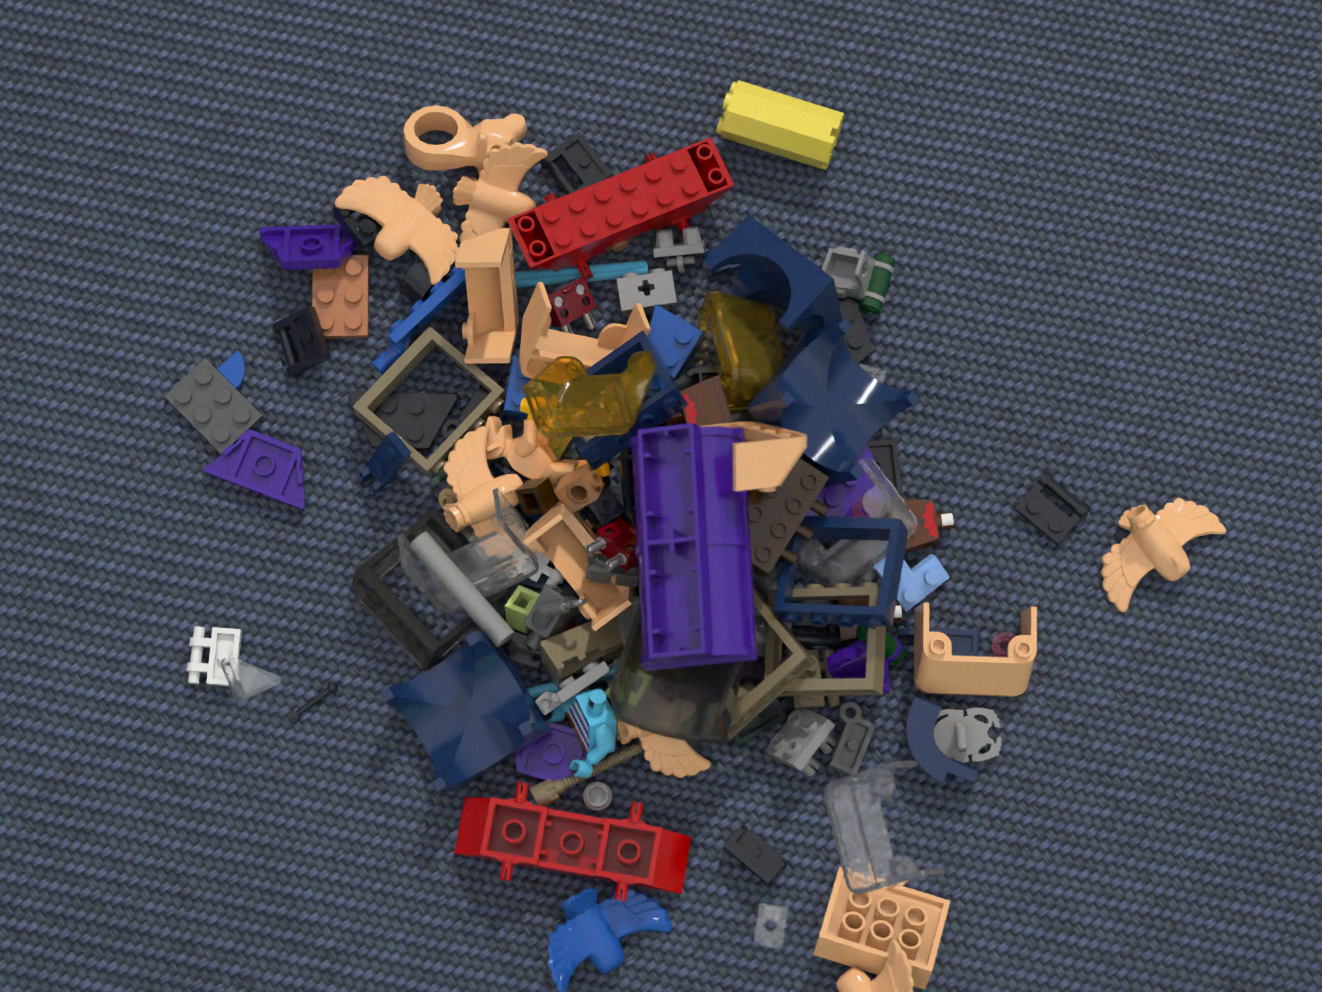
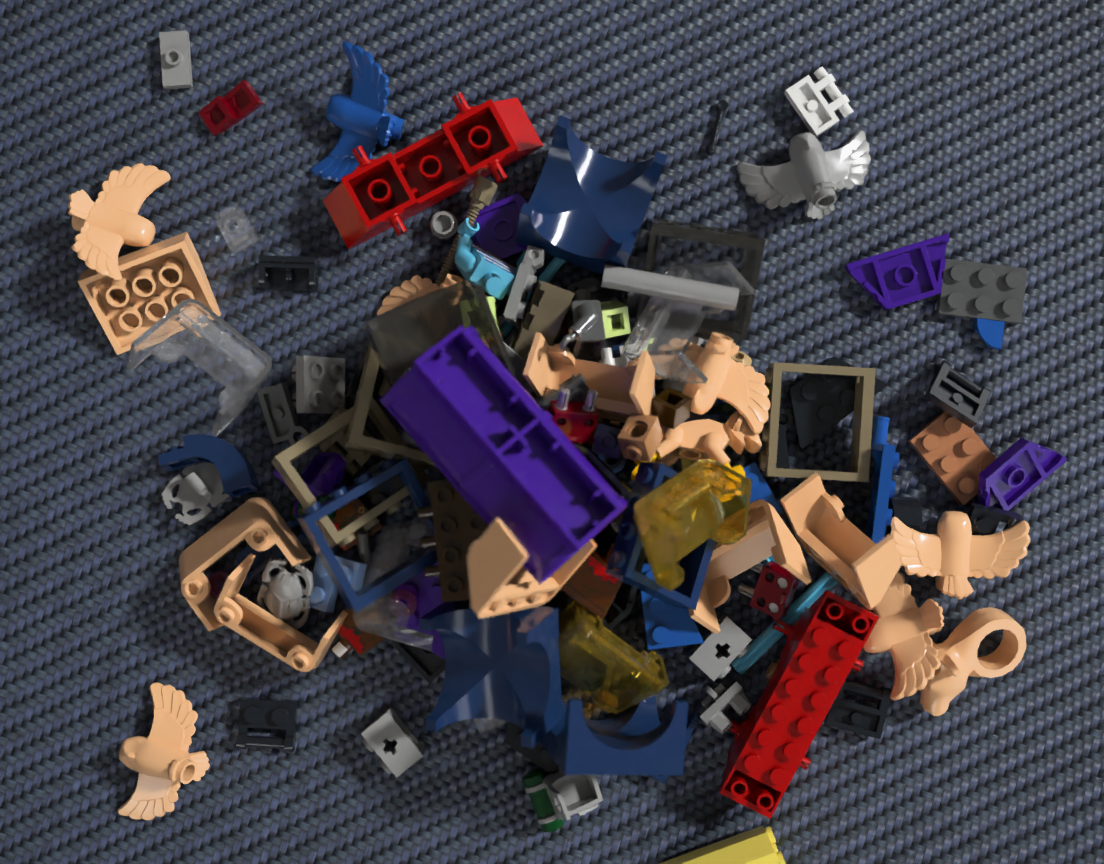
camera: 135 degrees right, 10 degrees up
(246, 679) = (778, 98): clear slope -> none
(272, 602) = (809, 174): none -> light grey animal
(385, 463) = (812, 346): dark blue hinge -> none
(957, 400) = (389, 728): none -> light grey brick
(958, 595) = (286, 593): none -> light grey shield
(988, 569) = (266, 629): none -> light nougat windscreen

